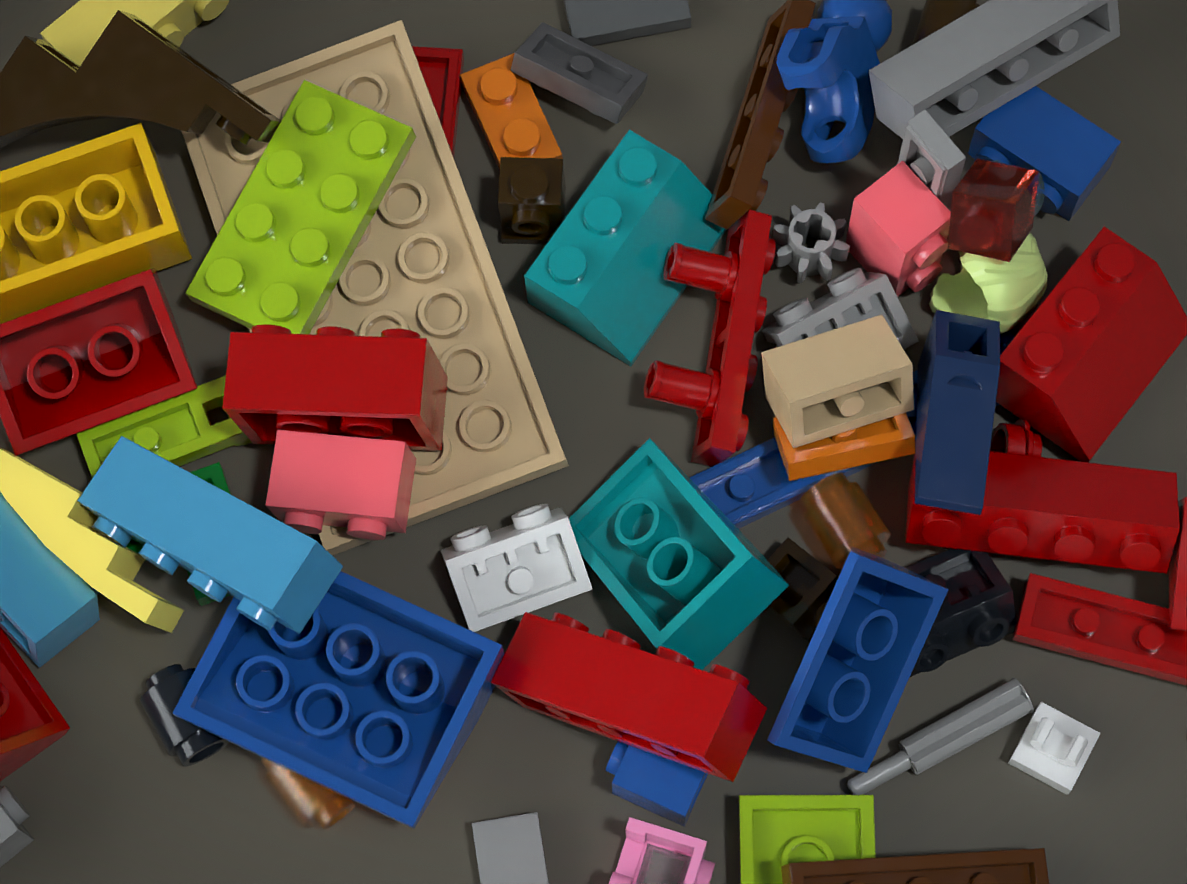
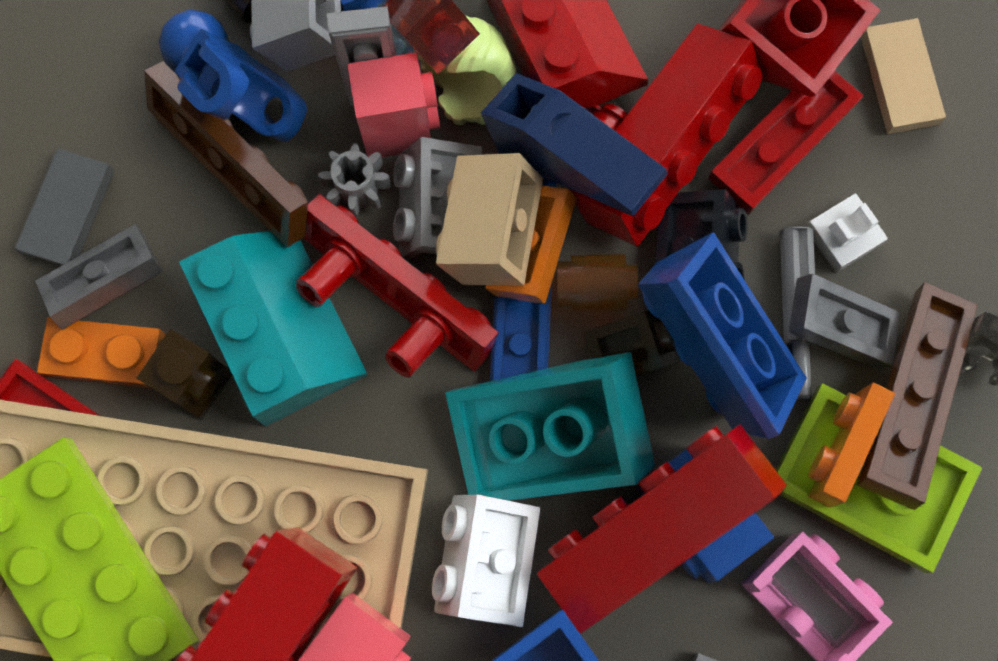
camera: 65 degrees left, 5 degrees up
(788, 840) = (859, 422): none -> orange plate
(949, 783) = (844, 321): none -> flat silver plate

